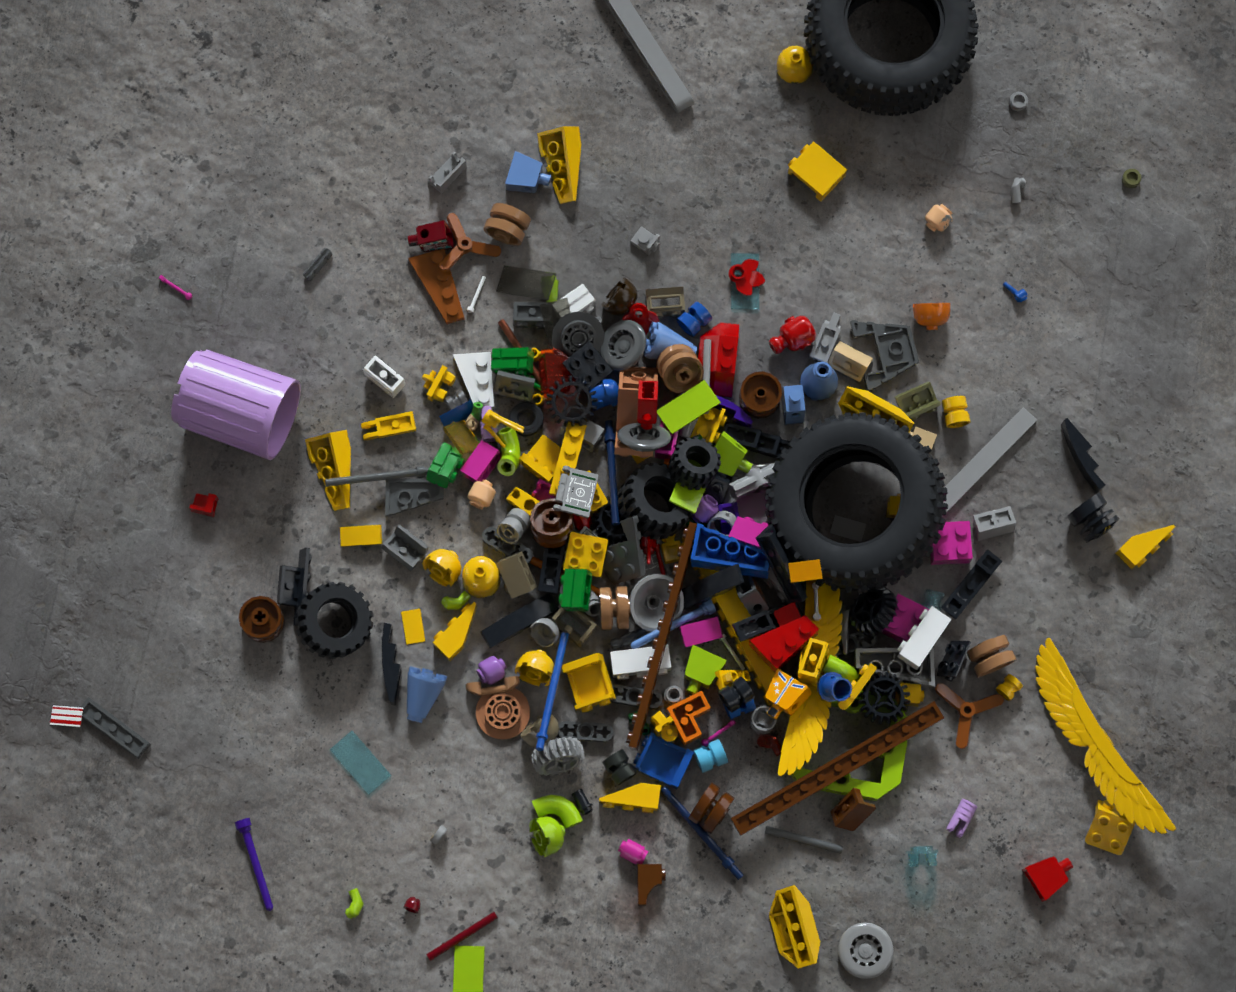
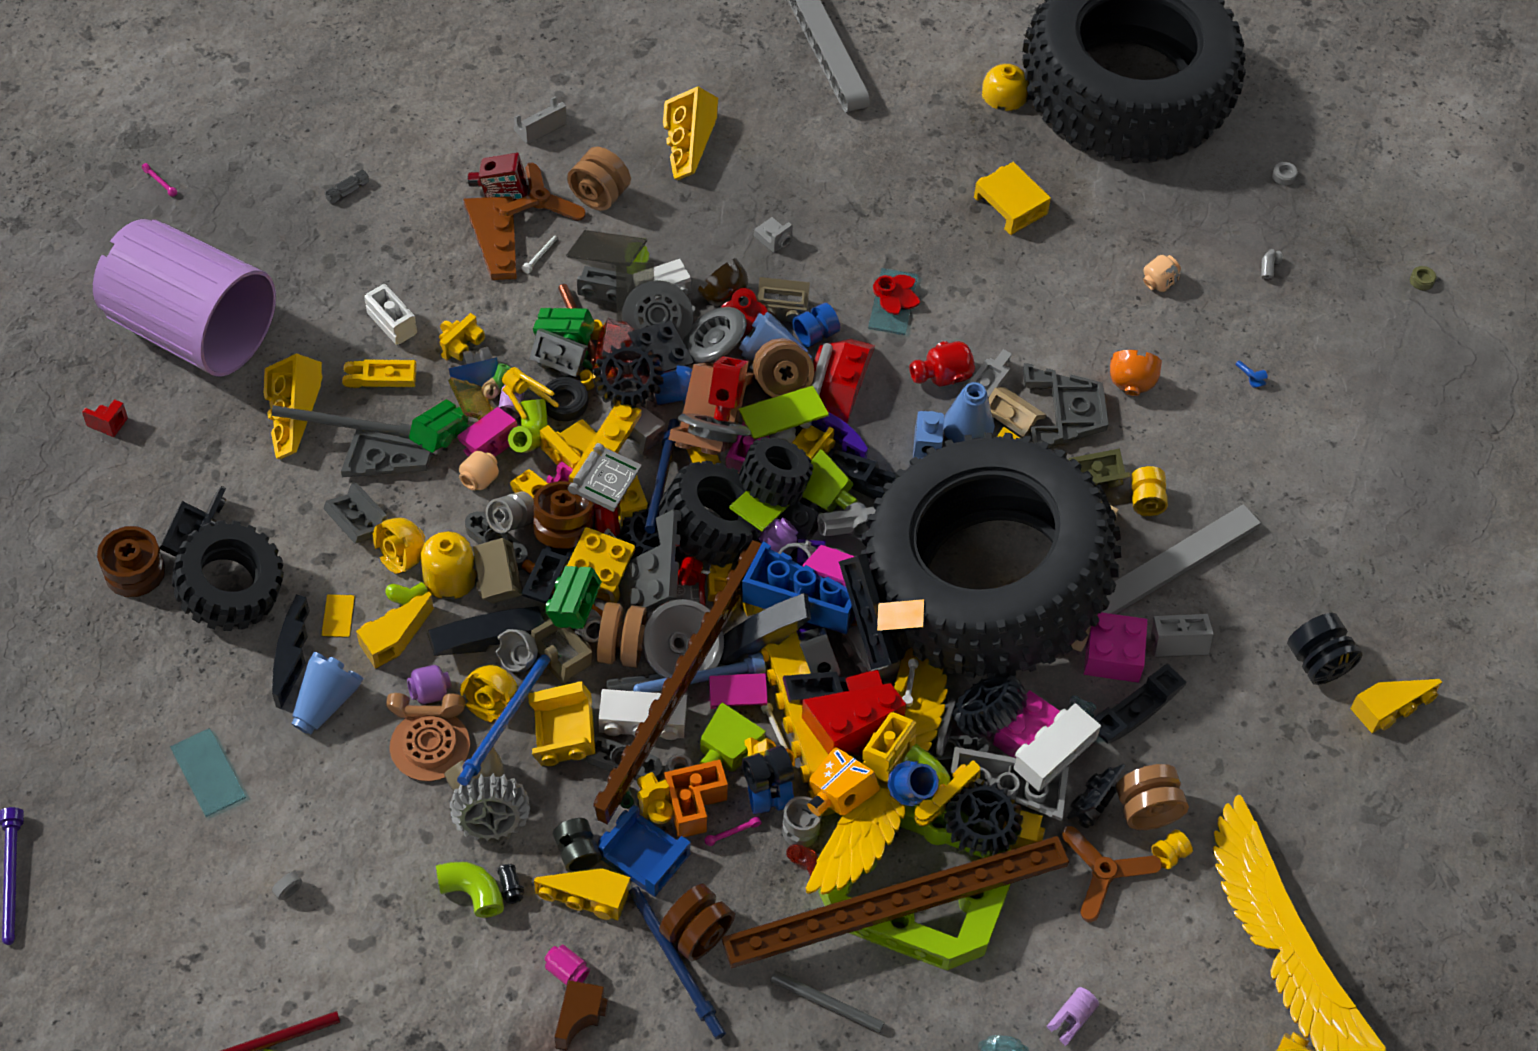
camera: 10 degrees right, 20 degrees down
(356, 905) = (136, 960): lime arm -> none
(361, 535) = (301, 489): yellow slope -> none
(412, 905) = (217, 977): dark red hinge -> none
(477, 376) = (513, 338): white wing -> none
(525, 174) = (638, 138): medium blue torso -> none
(548, 835) = (446, 915): lime cylinder -> none
(600, 726) = (546, 802): dark grey beam -> none
(710, 756) = (713, 855): medium azure wheel -> none
(750, 394) = (885, 422): reddish brown wheel -> none
(851, 811) = (908, 970): reddish brown panel -> none
(1079, 450) = (1315, 568): black slope -> none

